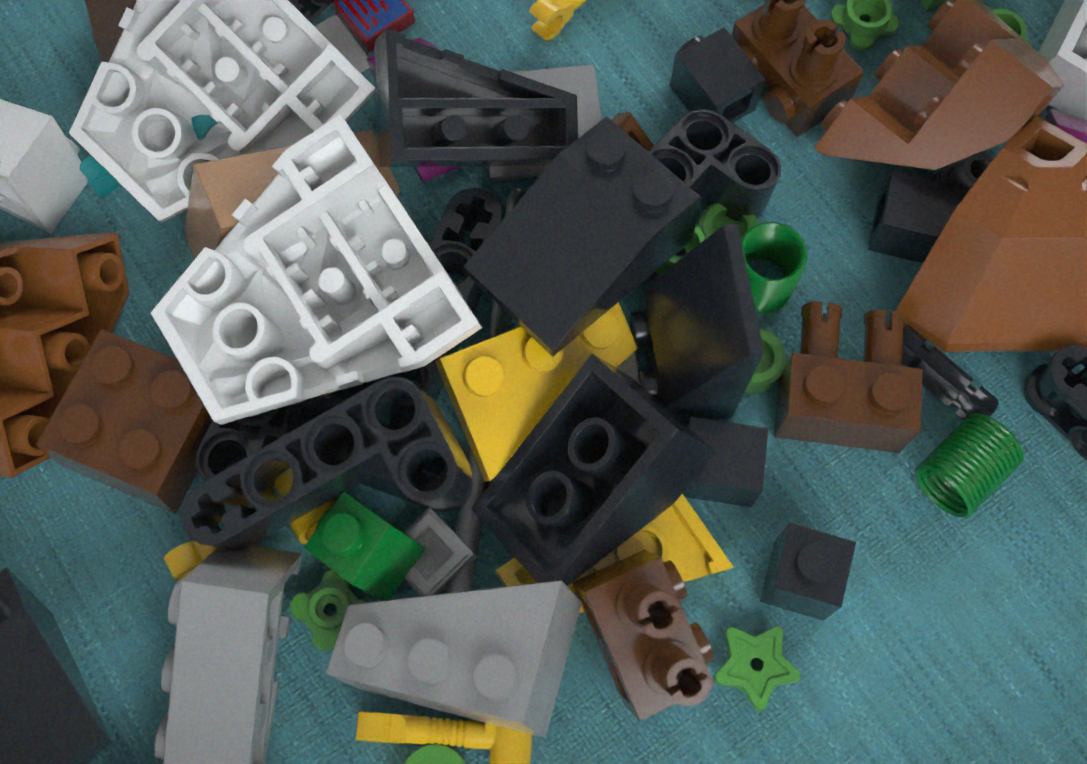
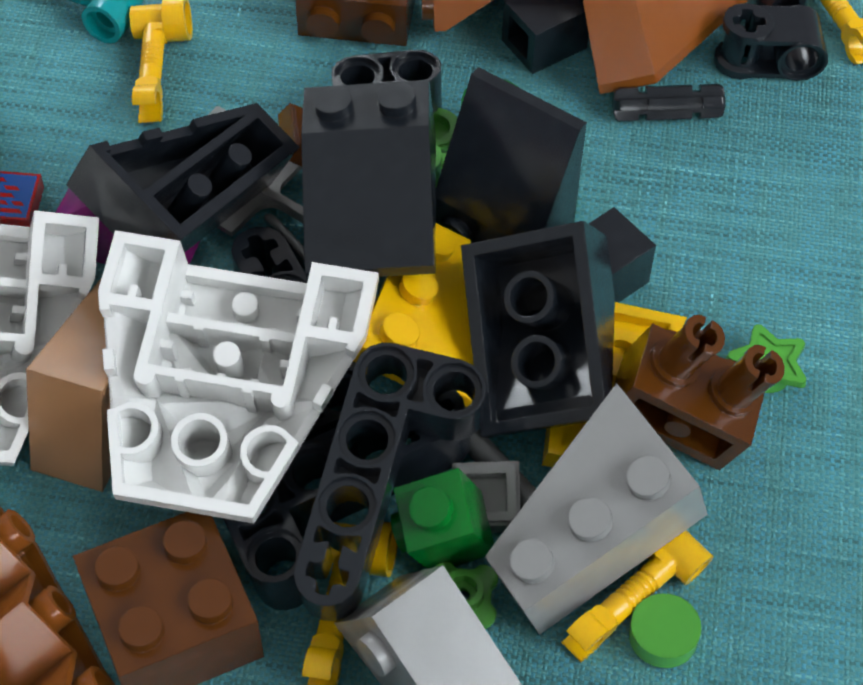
camera: 45 degrees left, 15 degrees down
(716, 76) = (313, 43): black brick -> none
(808, 572) = (735, 274): black brick -> none
(845, 400) = (641, 152): reddish brown brick -> none
(969, 465) = (749, 132): green piece -> none

